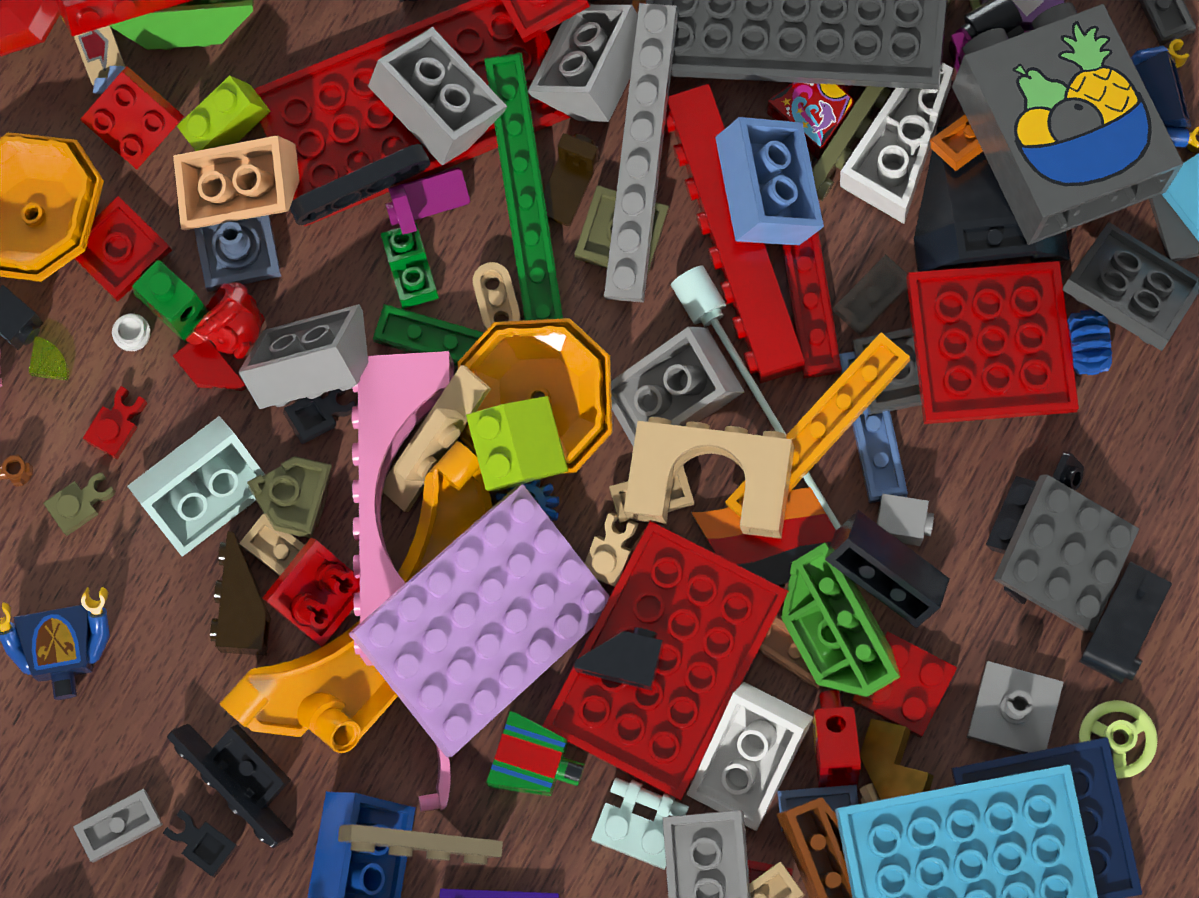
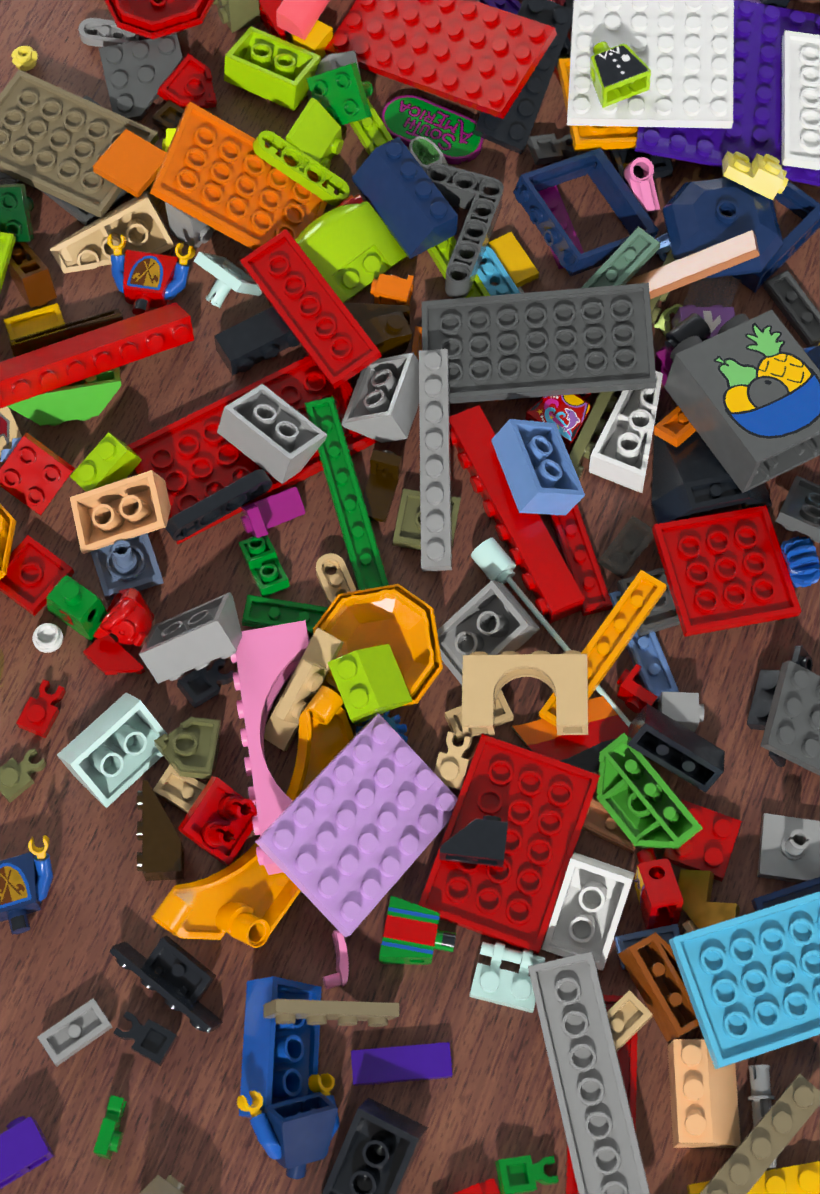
camera: 15 degrees left, 10 degrees down
(851, 494) = (632, 693): none -> red bracket

